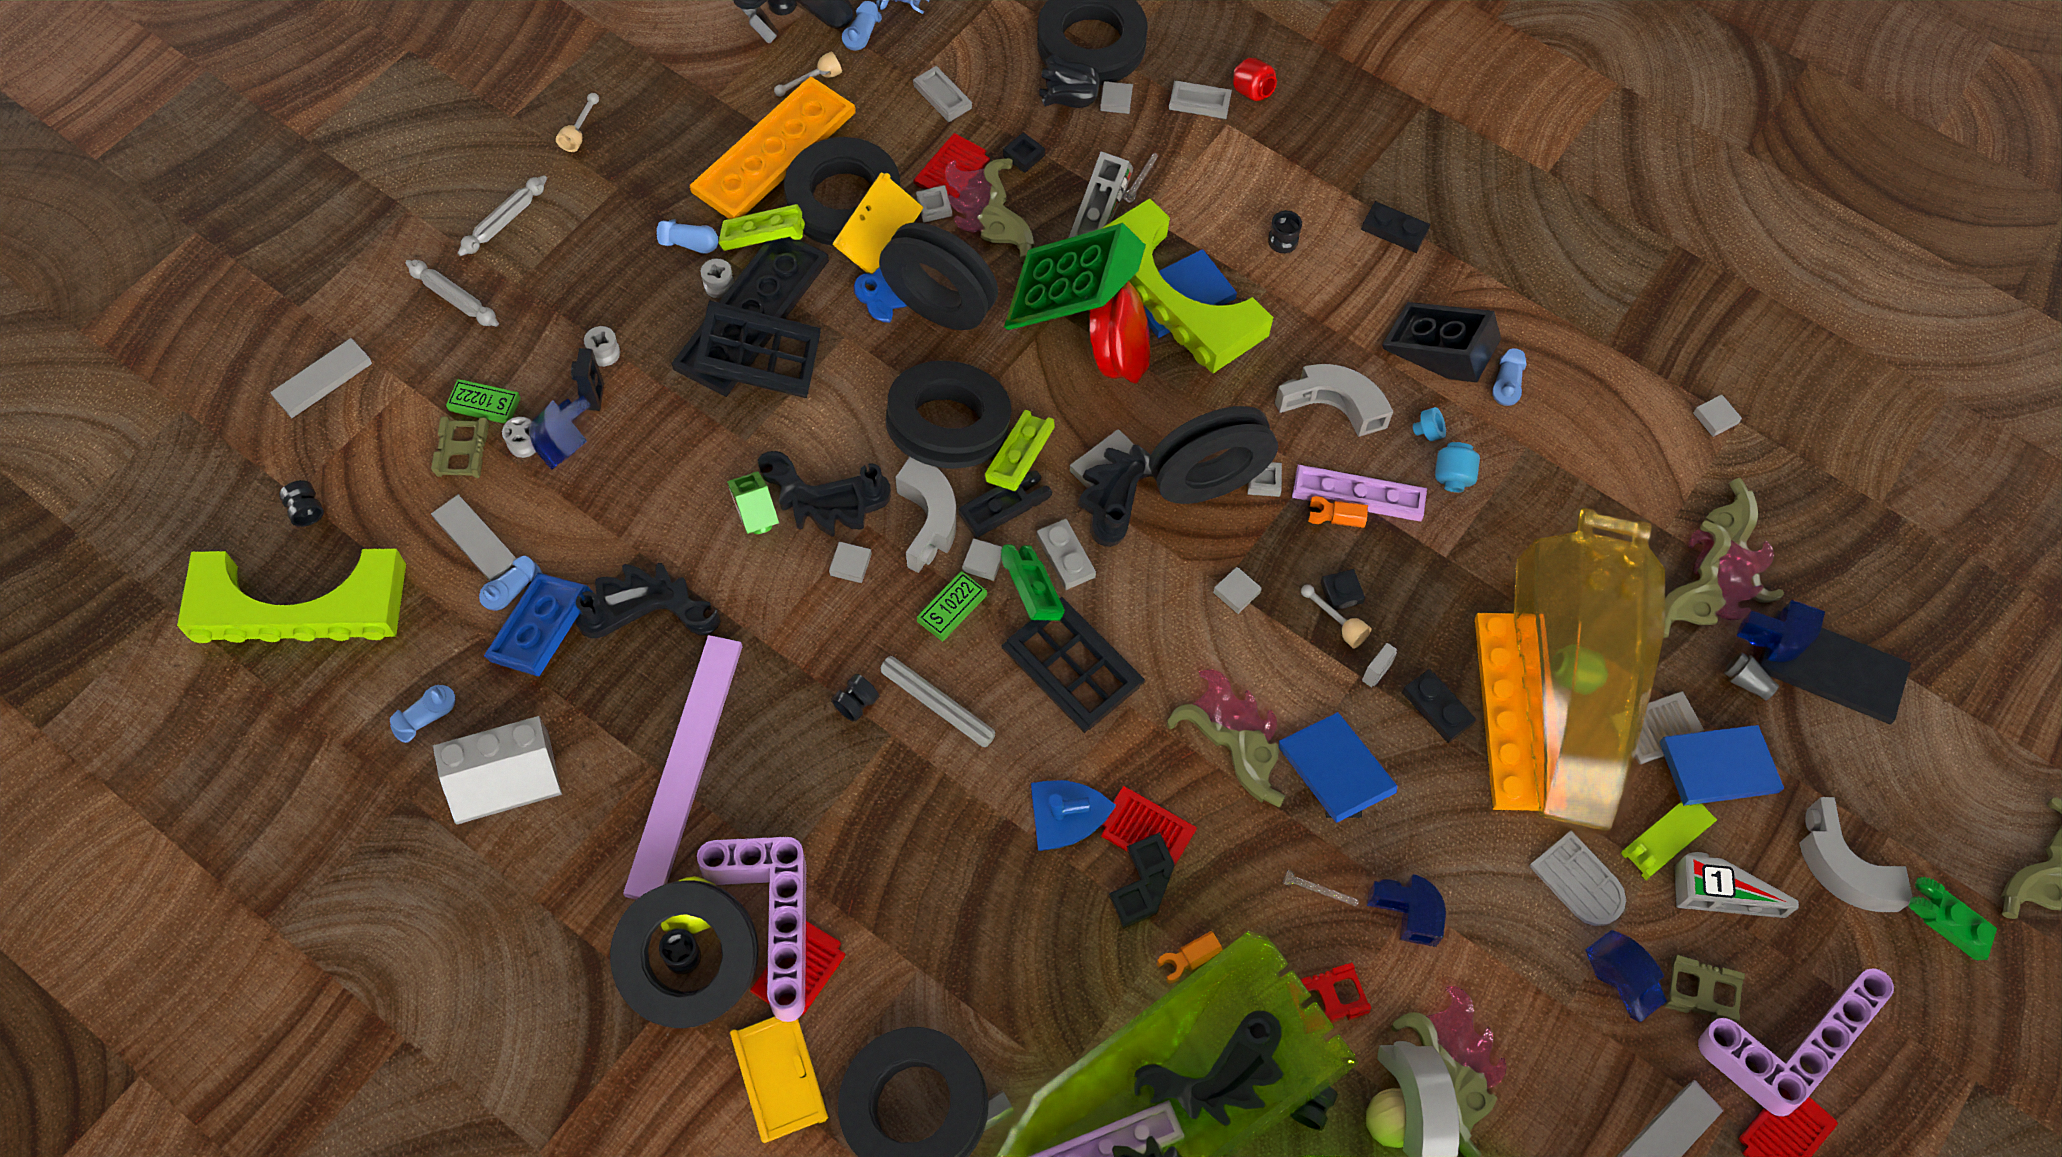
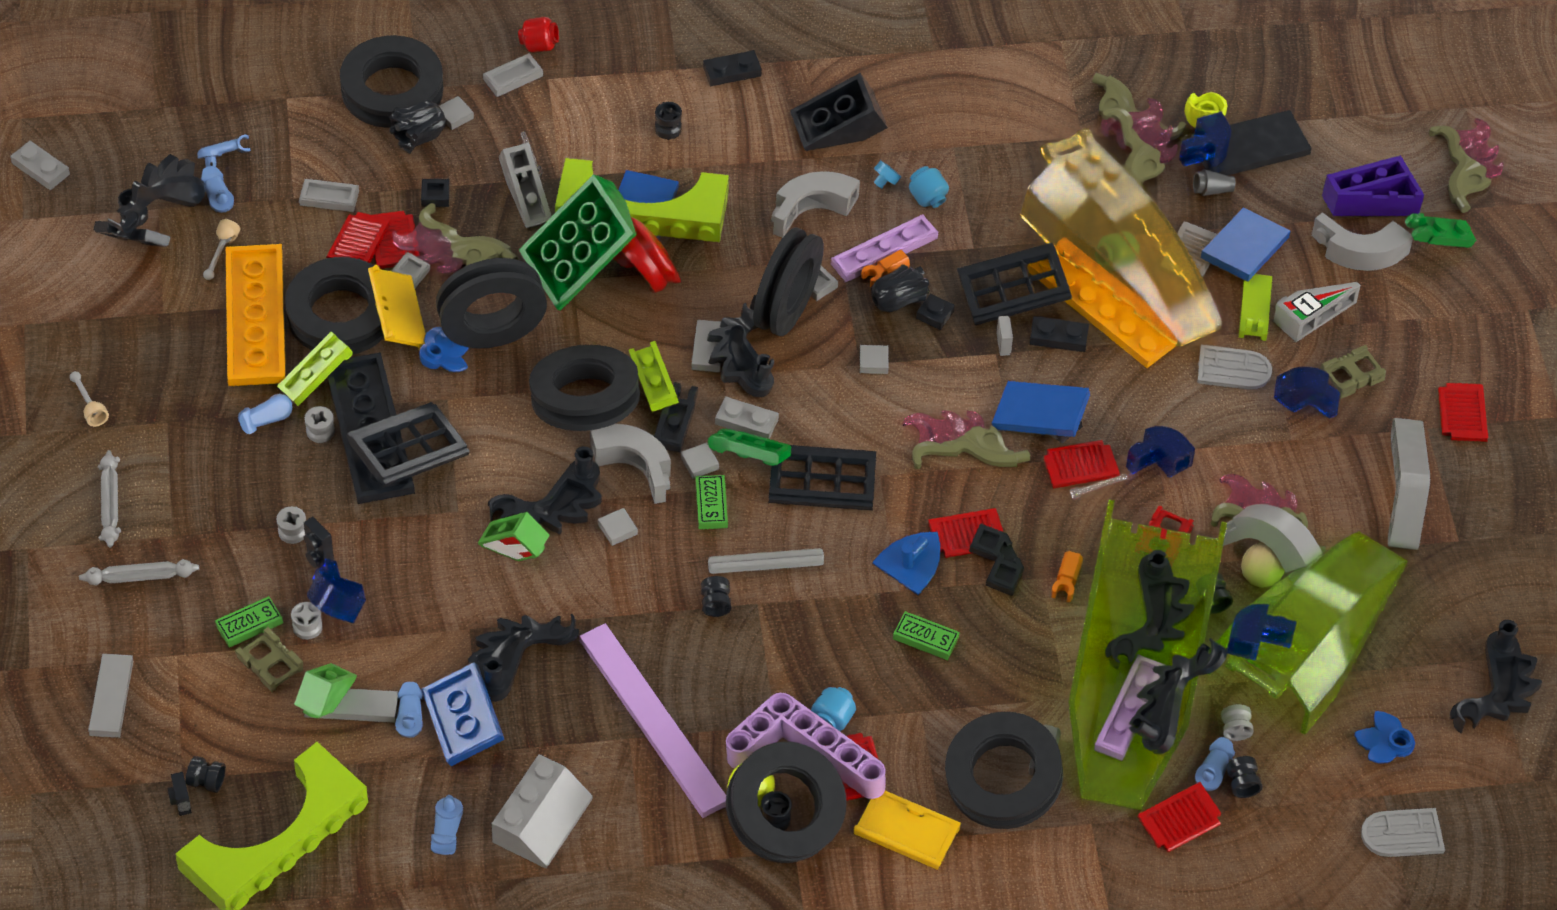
camera: 45 degrees left, 10 degrees down
(265, 504) = (178, 794): none -> black plate
(455, 507) = (323, 689): none -> bright green slope
(834, 898) = (835, 707): none -> dark azure head
(922, 147) = (359, 237): none -> red window
(999, 898) = (926, 635): none -> bright green tile
(1325, 542) = (900, 288): none -> black piece
(1325, 852) = (1080, 464): none -> red window
(1353, 630) = (967, 328): hinge -> none
(1429, 648) = (1008, 262): none -> black piece
(1508, 382) = (904, 116): medium blue piece -> none
(1717, 415) = (1045, 45): light grey tile -> none
(1812, 1051) = (1438, 382): lavender beam -> none
(1819, 593) = (1204, 105): none -> neon yellow hair
(1919, 817) = (1373, 190): none -> dark purple wedge

